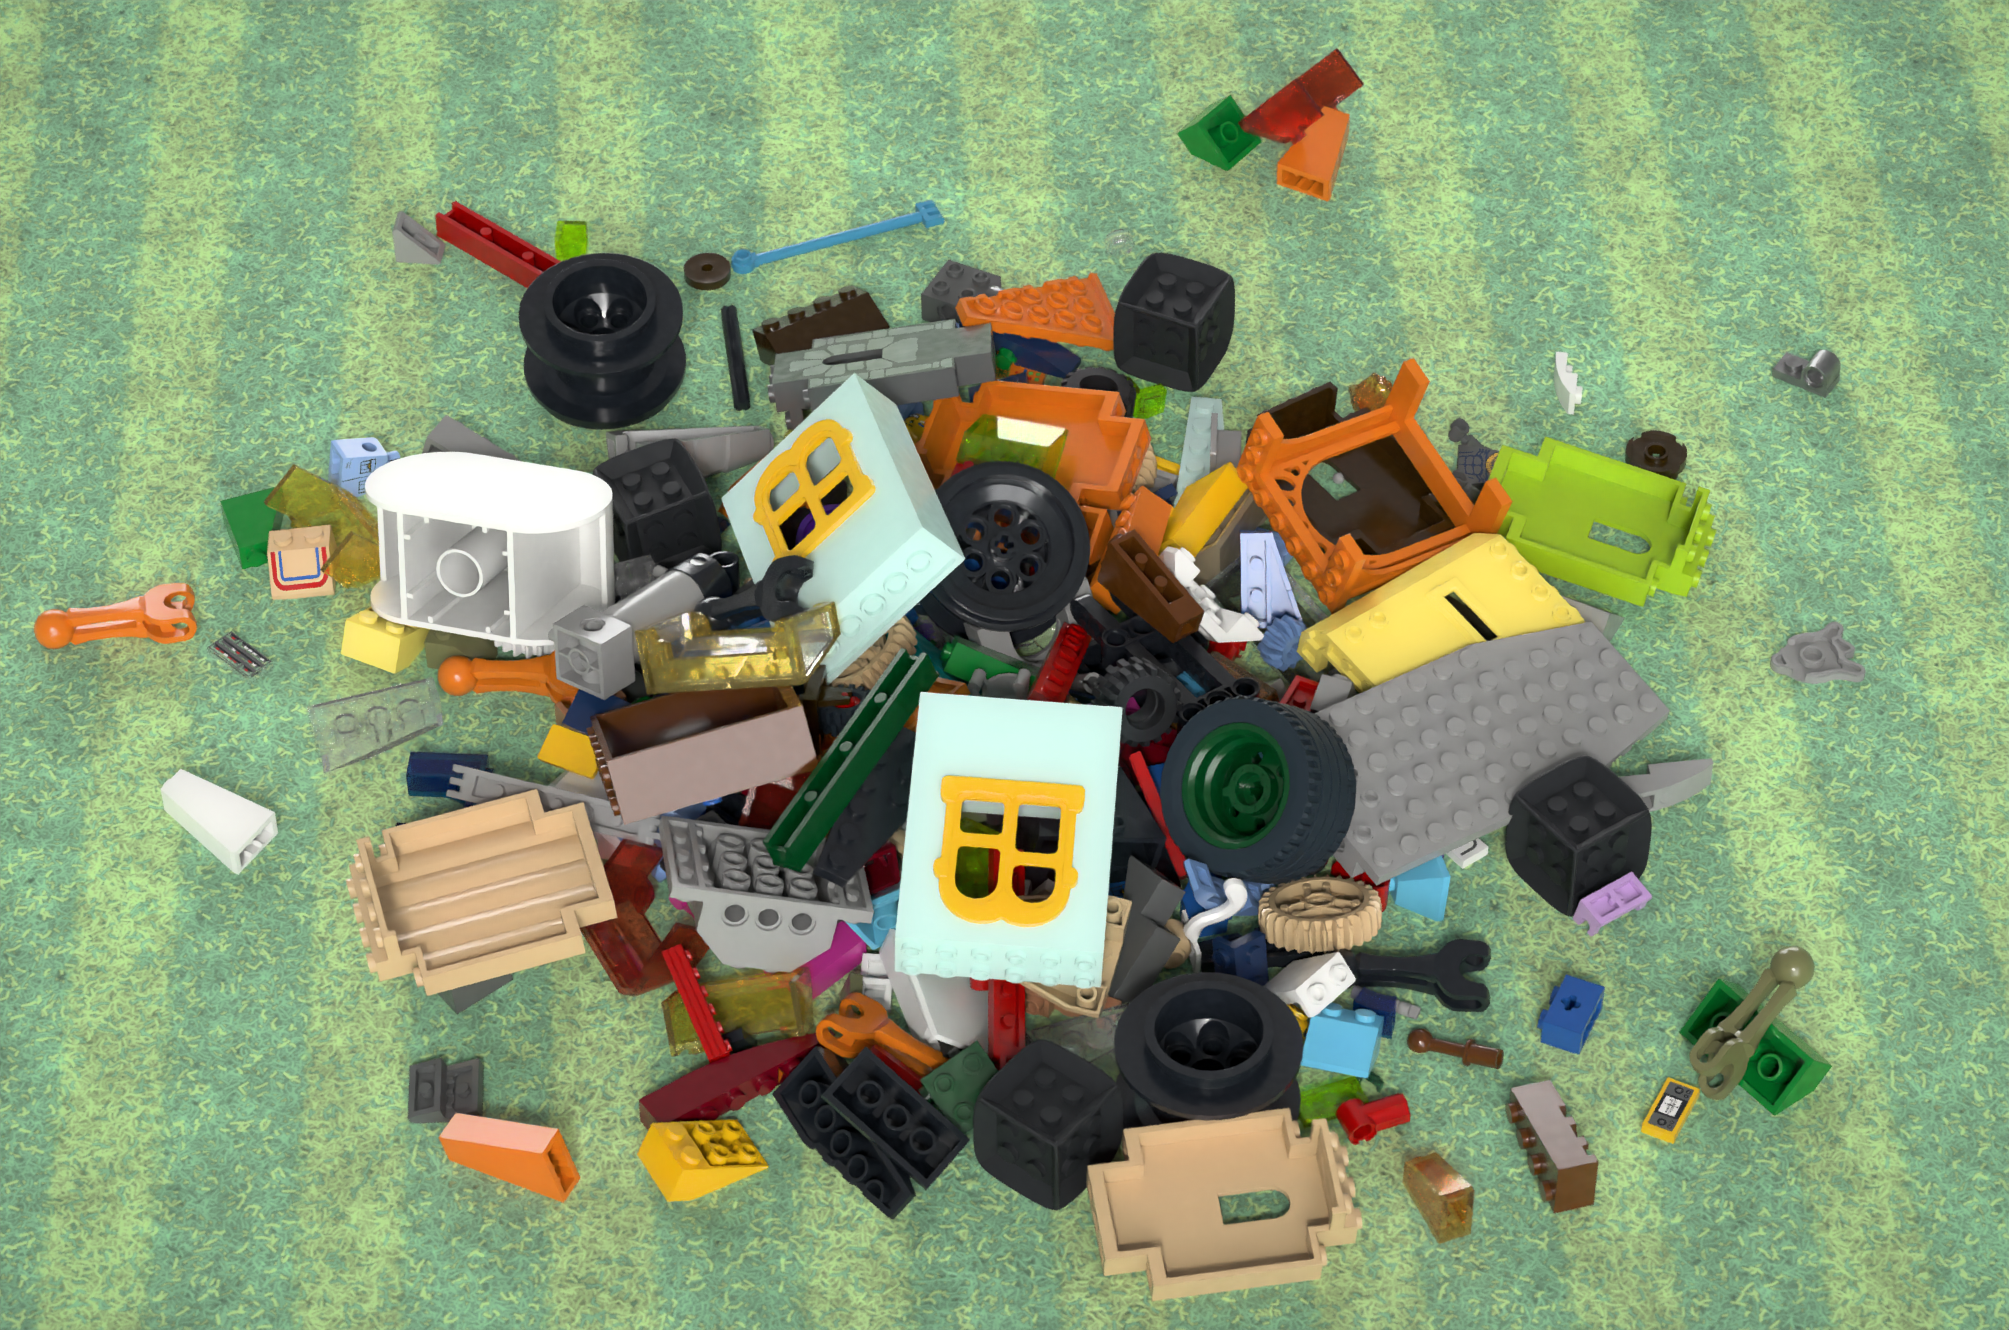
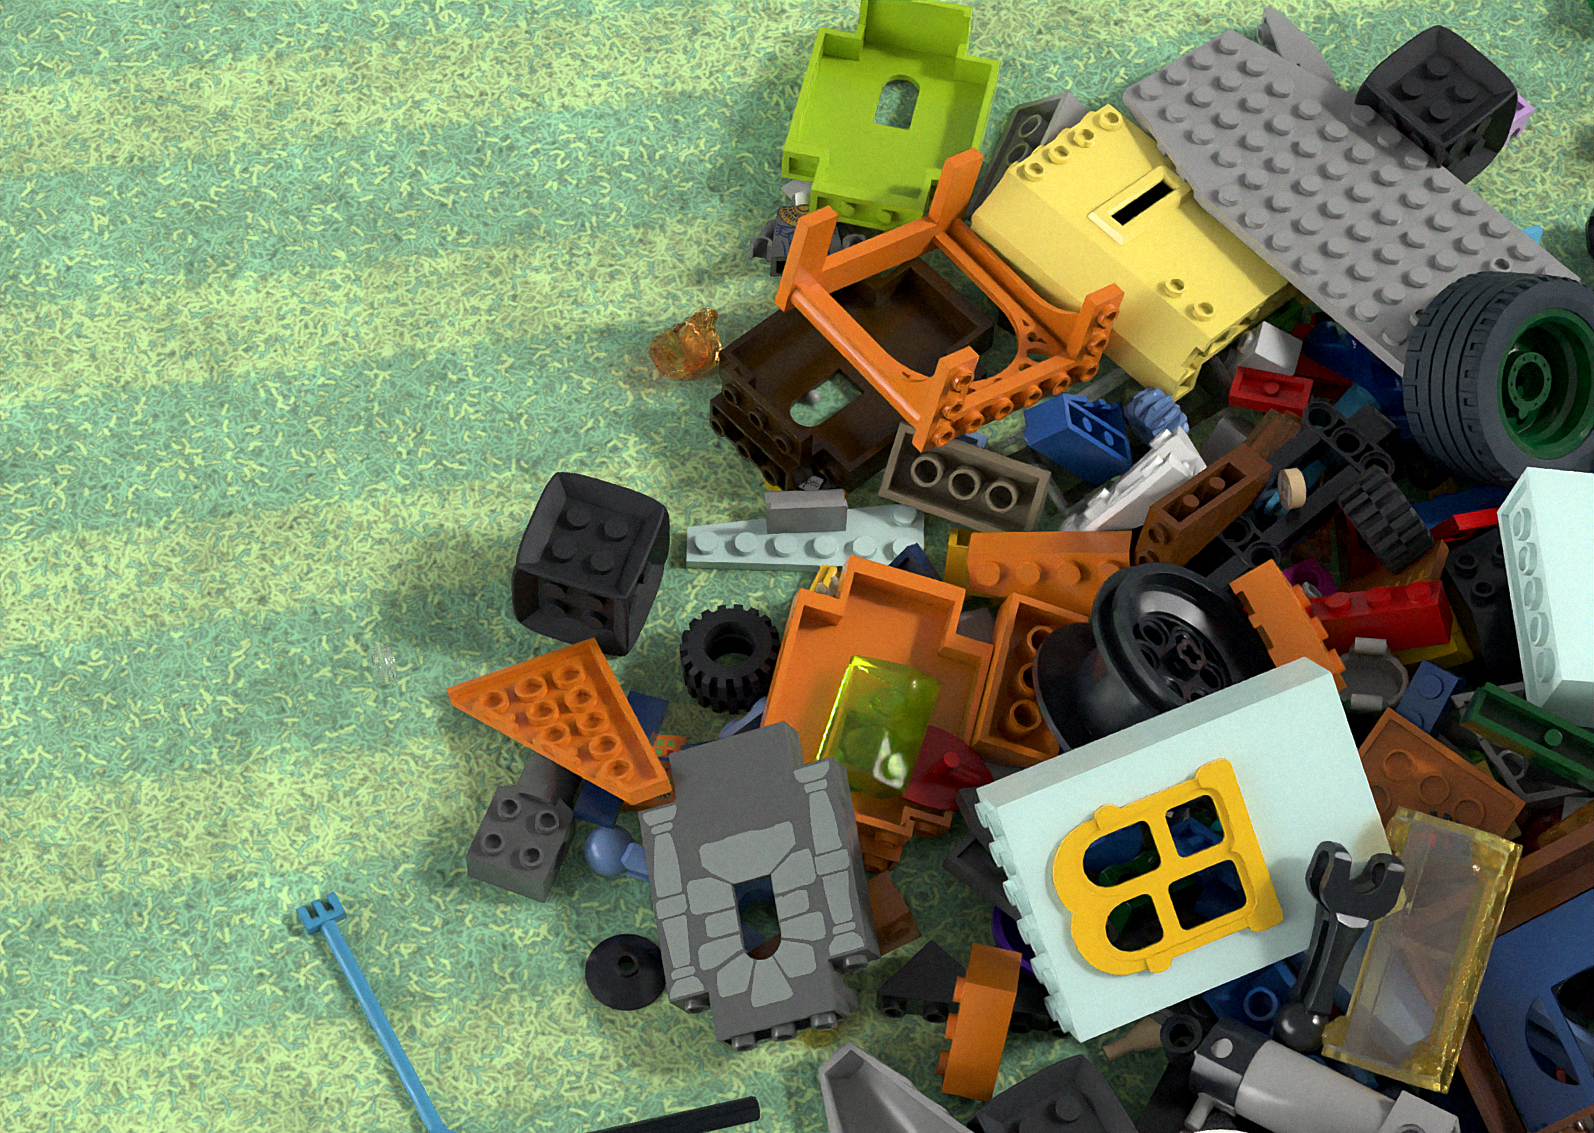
camera: 100 degrees left, 15 degrees up
(840, 314) = (620, 1010): dark brown slope -> none
(1030, 624) = (1282, 621): none -> orange wedge
(1149, 400) = (703, 598): clear neon green panel -> none
(1168, 649) = (1291, 488): none -> tan tile
(1202, 509) = (951, 503): yellow slope -> none
(1217, 135) = (141, 559): green slope -> none
(1301, 101) = (78, 475): clear red windscreen -> none
(1316, 159) = (182, 439): orange slope -> none
(1566, 383) = (638, 157): white slope -> none
(1671, 454) = (737, 89): dark brown plate -> none

